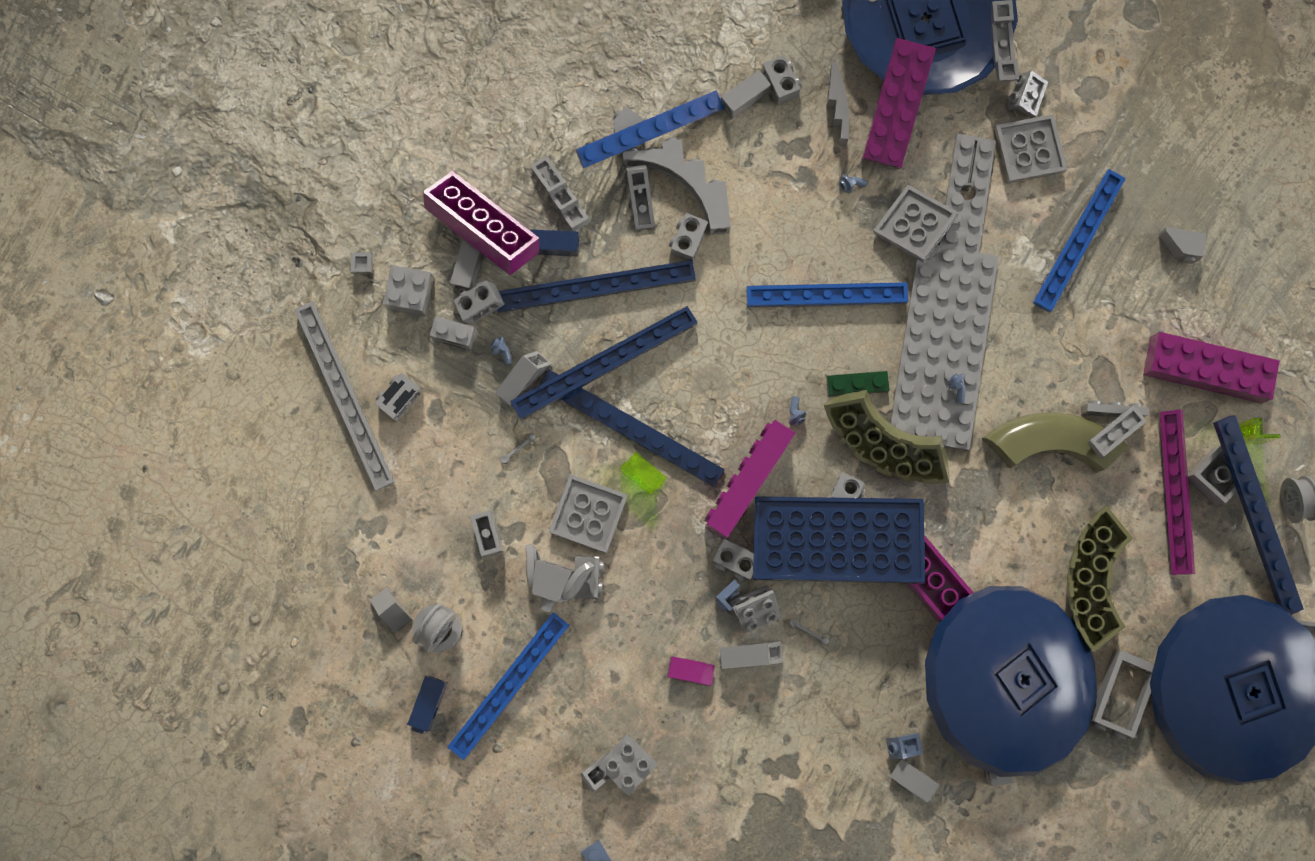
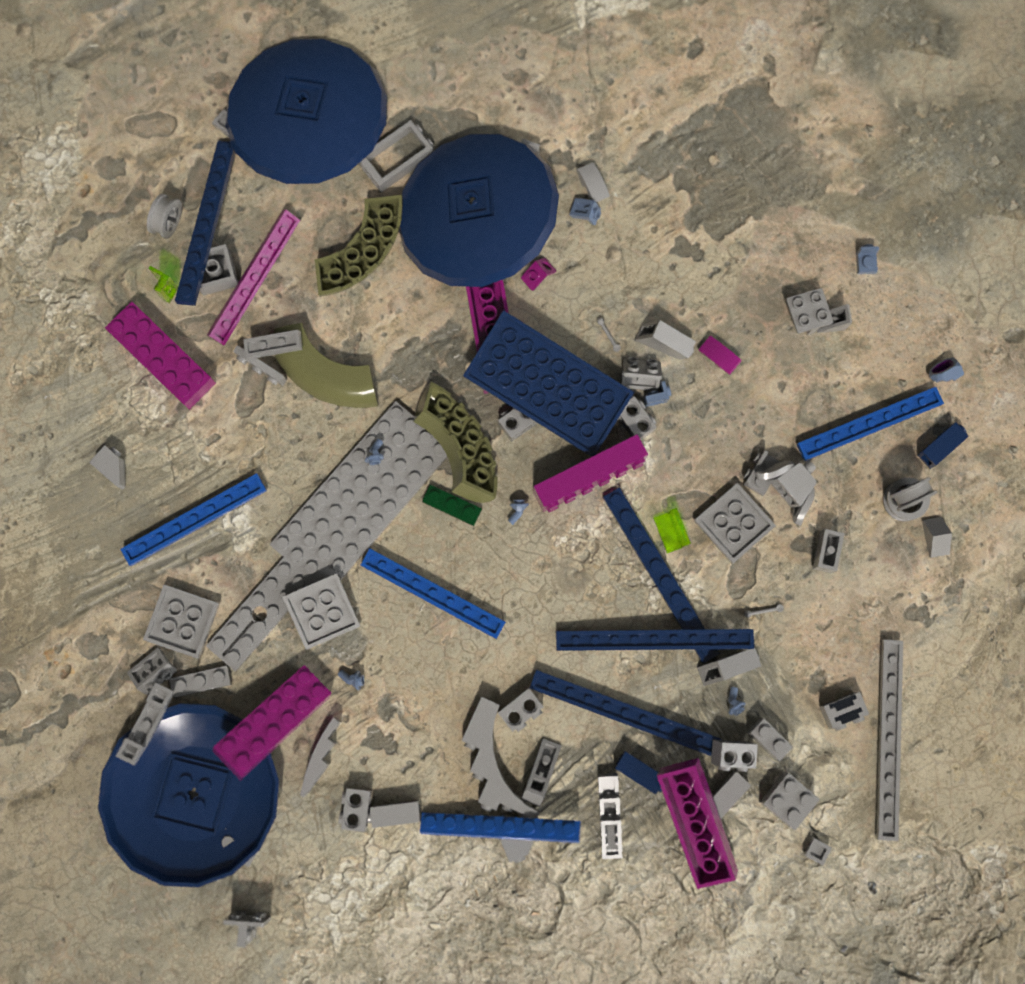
camera: 150 degrees left, 0 degrees up
(461, 782) = (946, 370): none -> sand blue rock
(913, 652) = (537, 273): none -> magenta bracket
(980, 110) = (200, 681): none -> light grey plate

